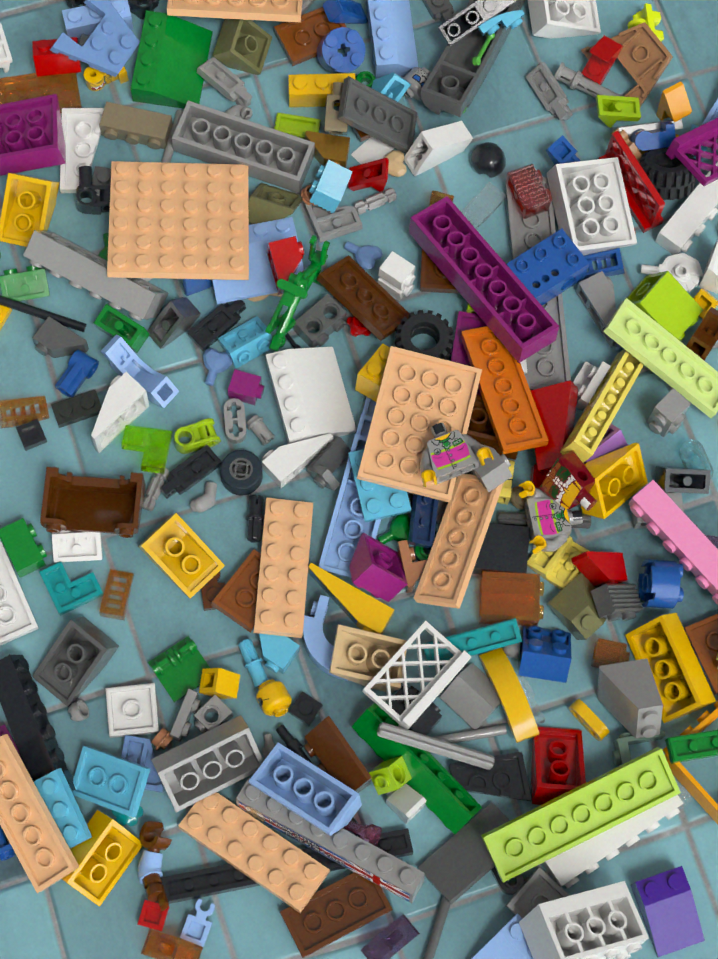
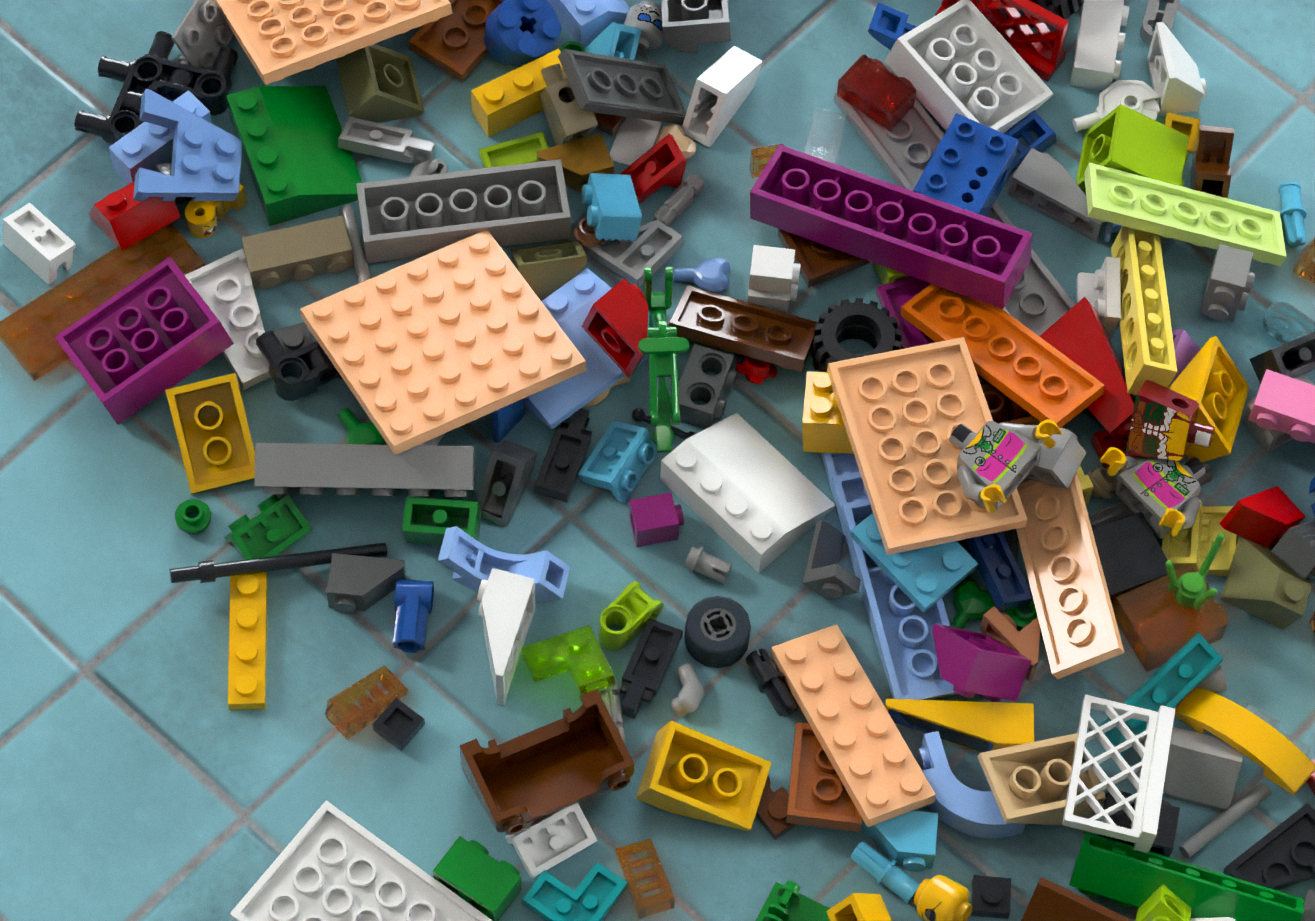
camera: 25 degrees left, 10 degrees down
(76, 408) = (439, 660): pearl dark grey plate -> none
(215, 363) = (594, 510): medium blue rock -> none
(240, 420) = (659, 575): light grey beam -> none
(292, 458) = (774, 579): white slope -> none
(435, 746) = (1198, 847): light grey axle -> none
(488, 159) = (794, 80): black hair -> none
(528, 588) = (1191, 586): none -> bright green plant
(545, 654) = (1261, 664): blue slope -> none

